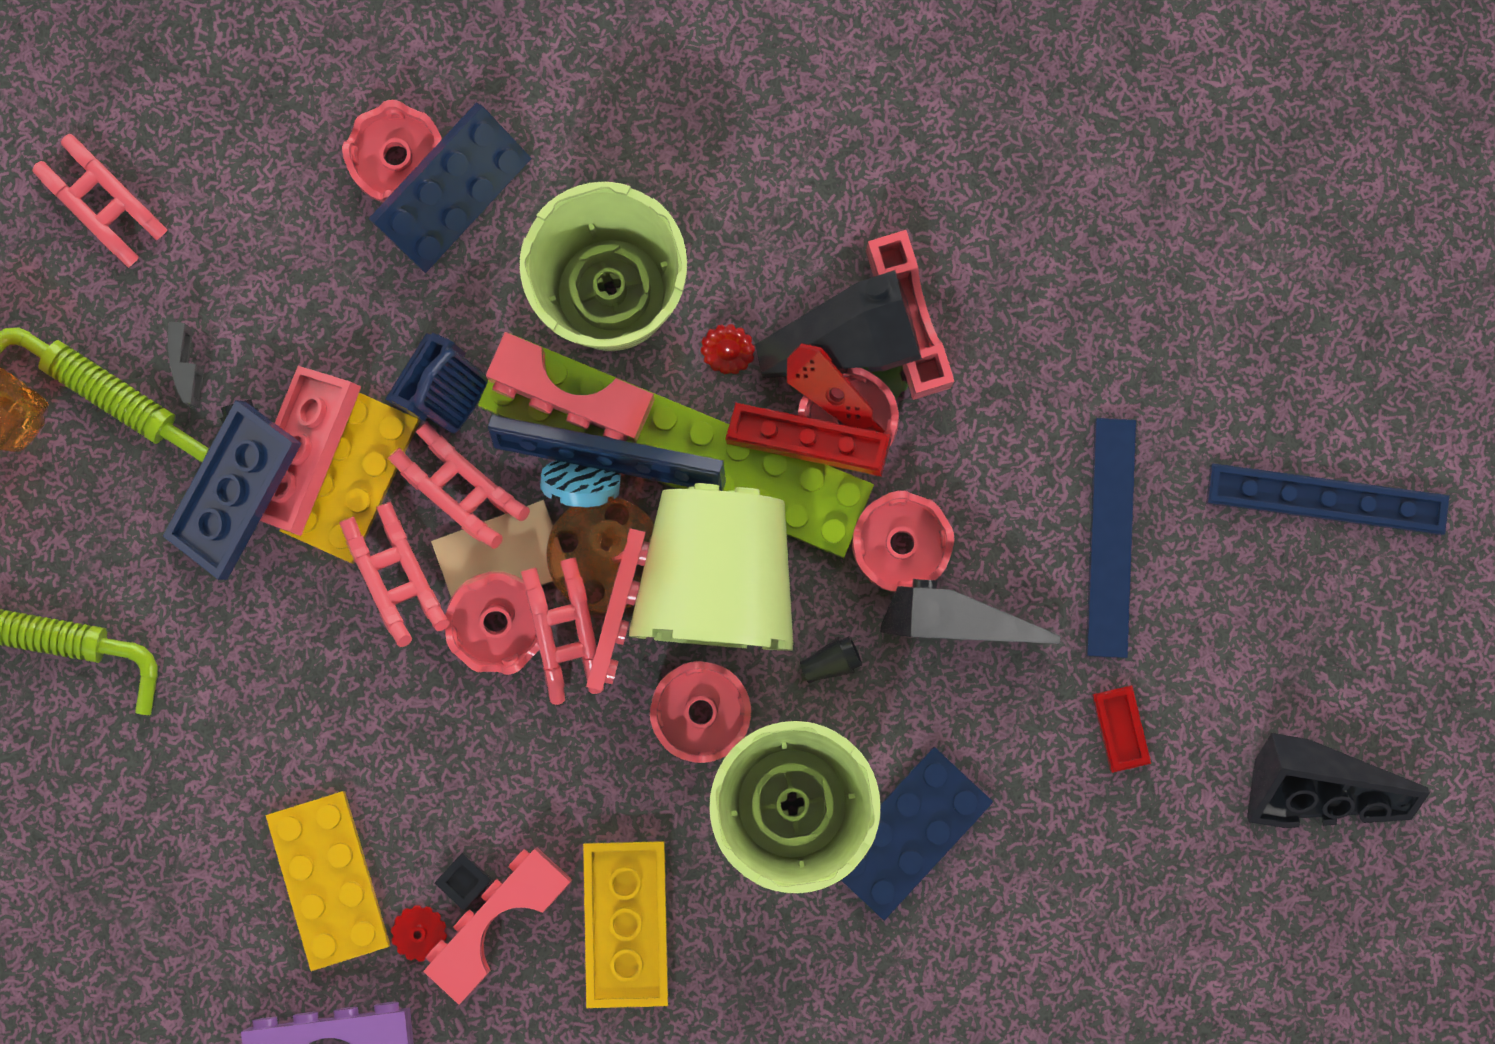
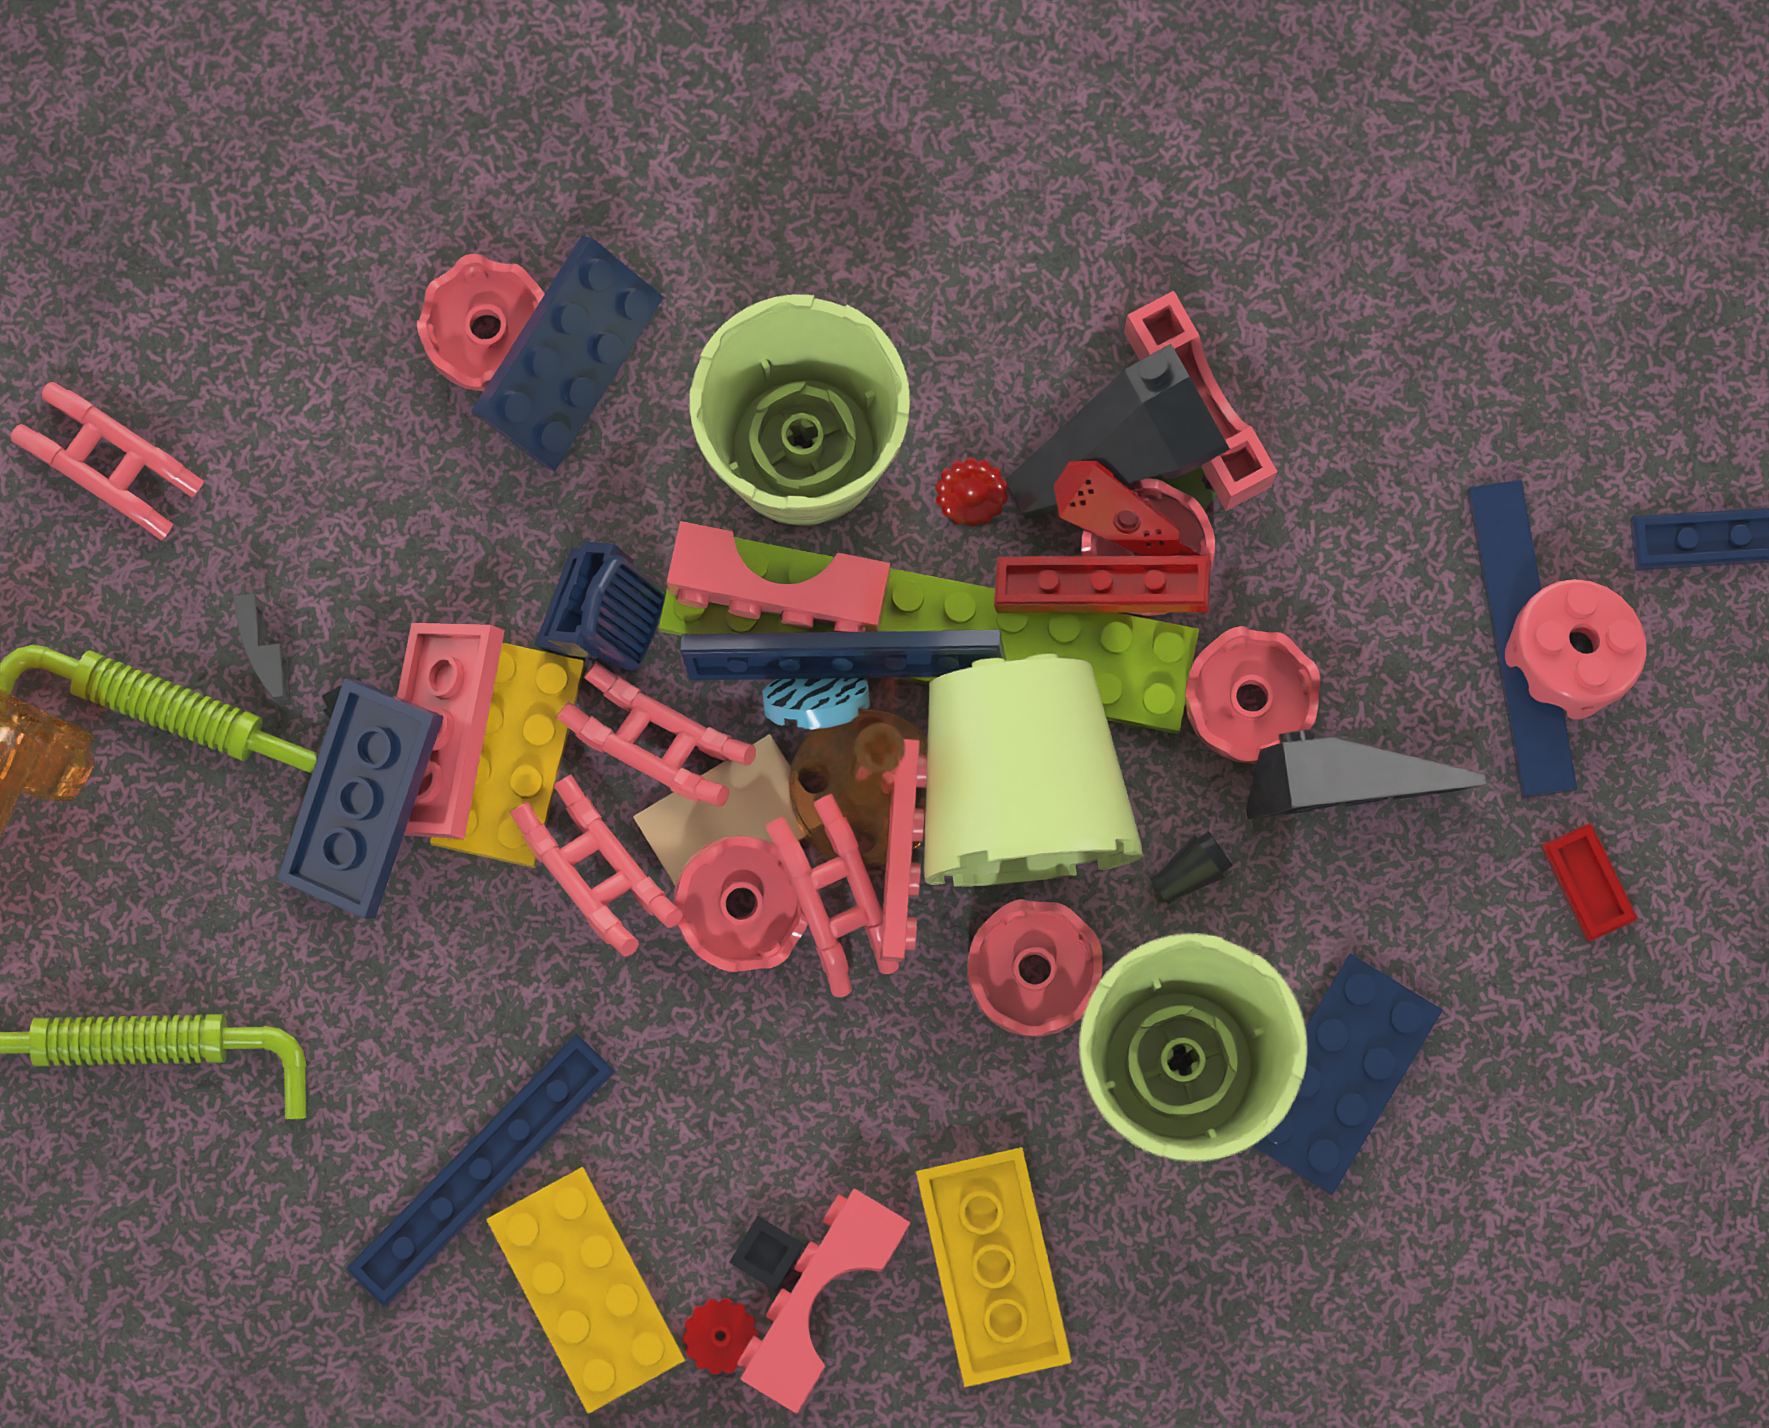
camera: 10 degrees left, 5 degrees down
(269, 778) = (480, 1170): none -> dark blue tile
(1130, 569) = (1557, 670): none -> coral plate

